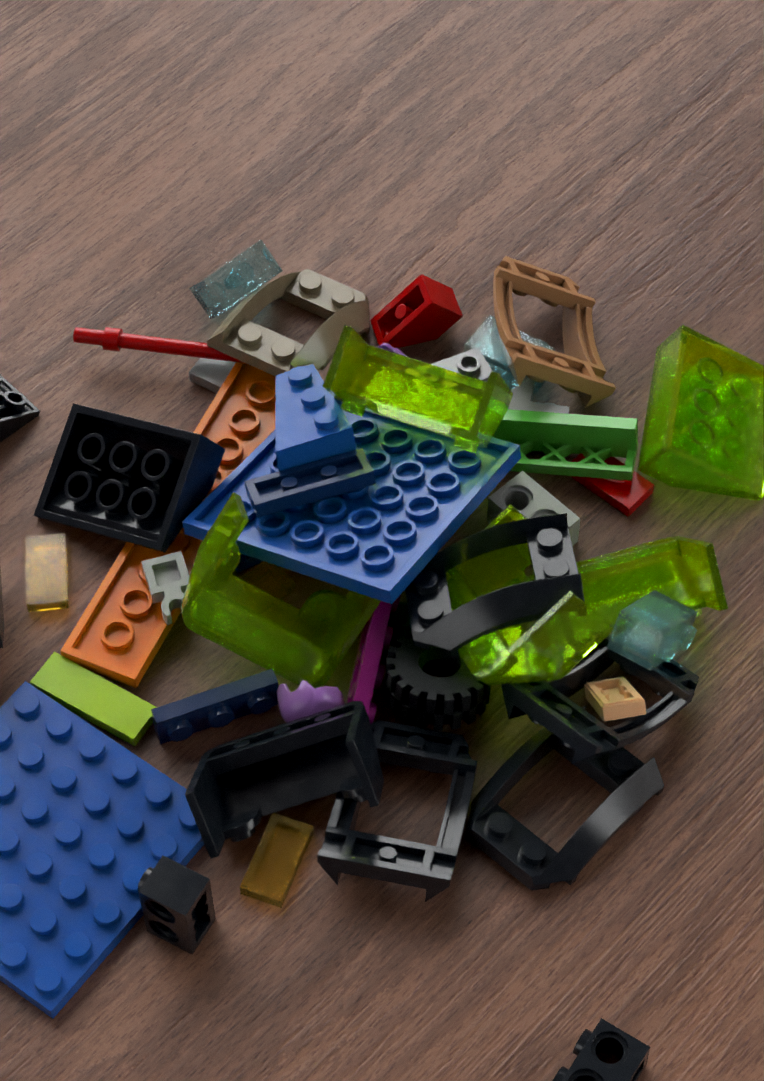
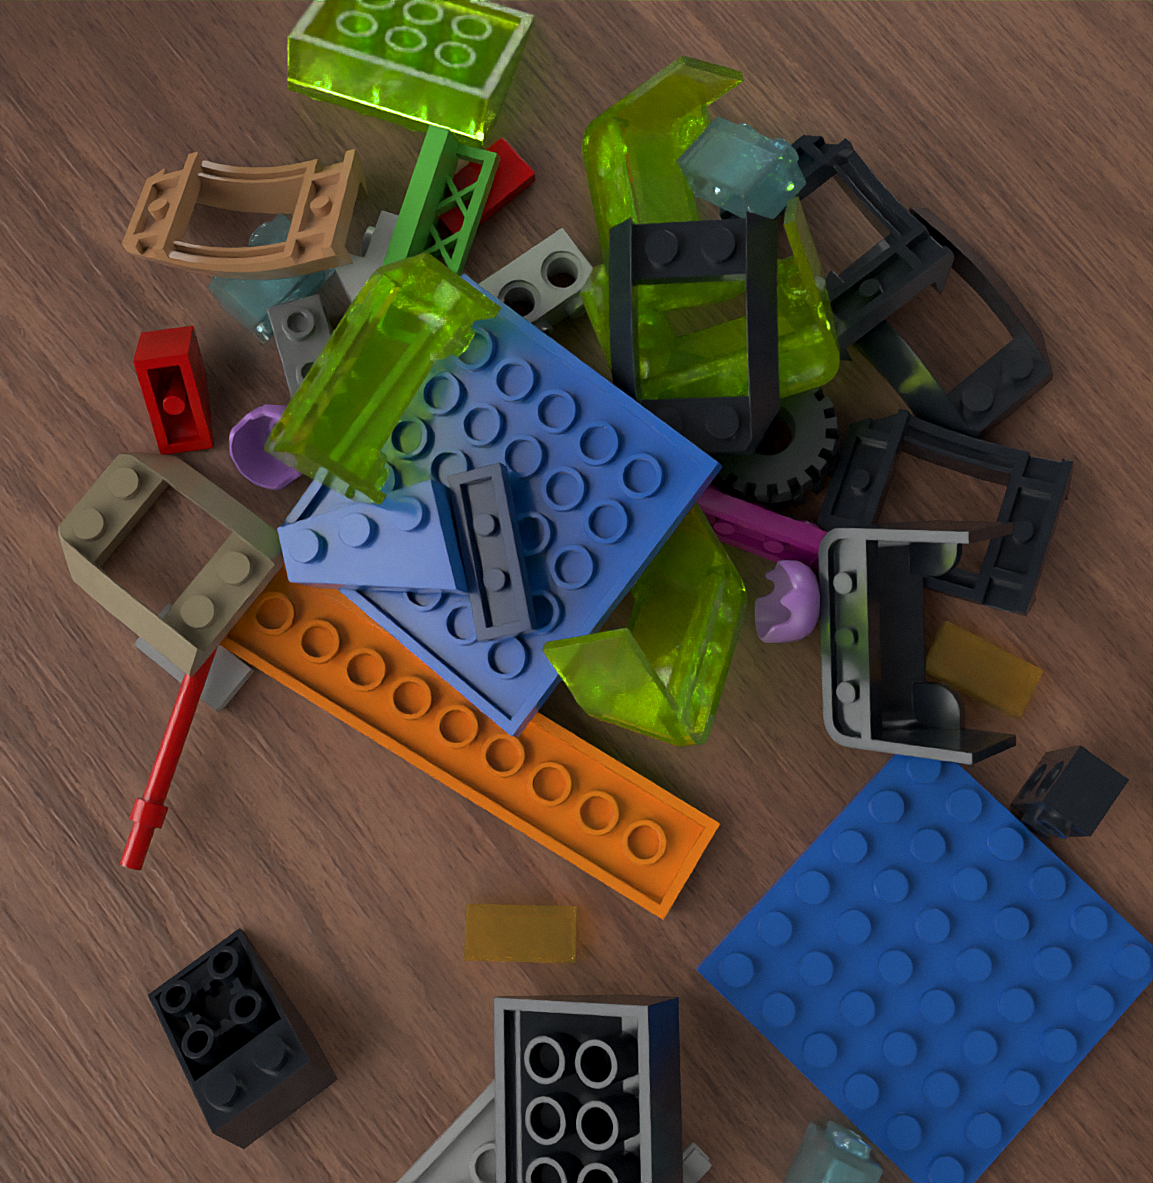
camera: 85 degrees left, 25 degrees up
(94, 698) = (727, 880): lime tile -> none
(127, 477) = (407, 809): black slope -> none
(166, 581) = (586, 765): light grey plate -> none
(215, 707) = (772, 721): dark blue plate -> none
(236, 279) = (70, 626): clear light blue brick -> none
(614, 699) = (839, 229): light nougat plate -> none

